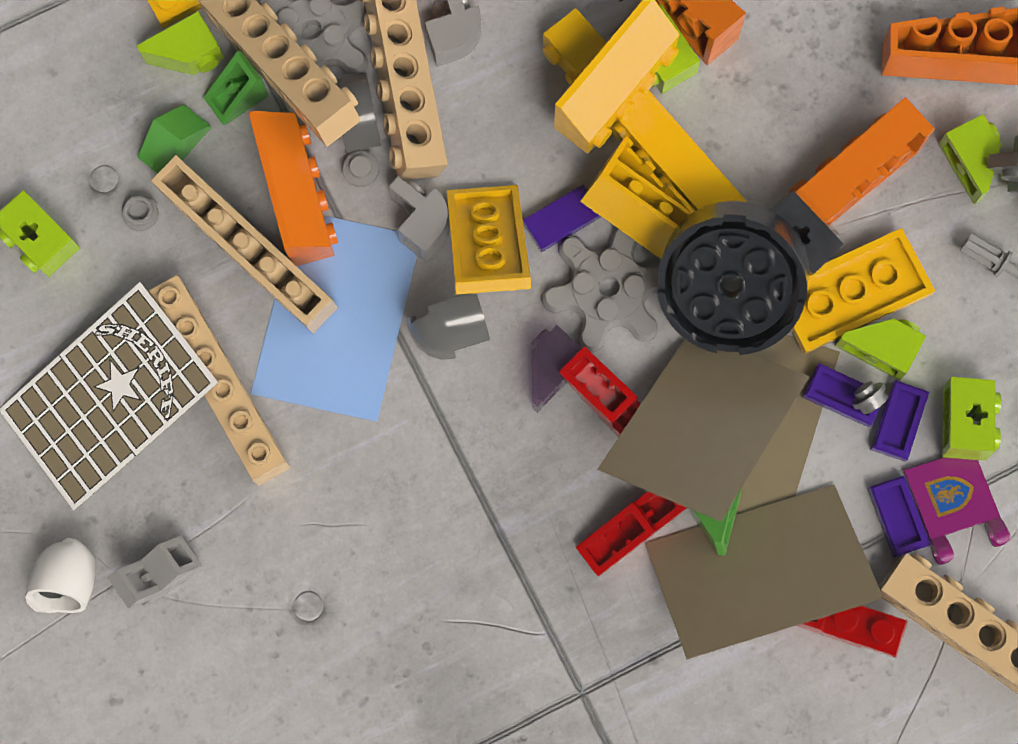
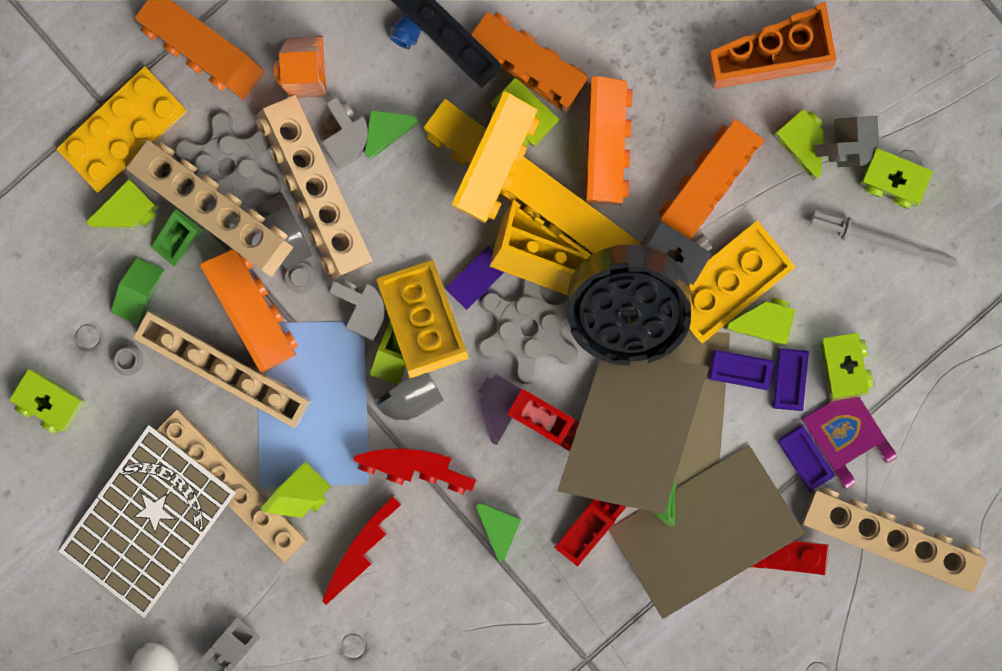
camera: 20 degrees left, 10 degrees up
(290, 406) = (298, 494): none -> lime slope
(336, 502) = (355, 559): none -> red slope
(424, 402) = (403, 462): none -> red slope
(437, 277) = (389, 360): none -> lime slope
(501, 31) = (385, 130): none -> bright green slope
(517, 505) = (499, 527): none -> bright green slope
(747, 98) = (607, 141): none -> orange slope
(869, 397) = (761, 370): flat silver plate -> none

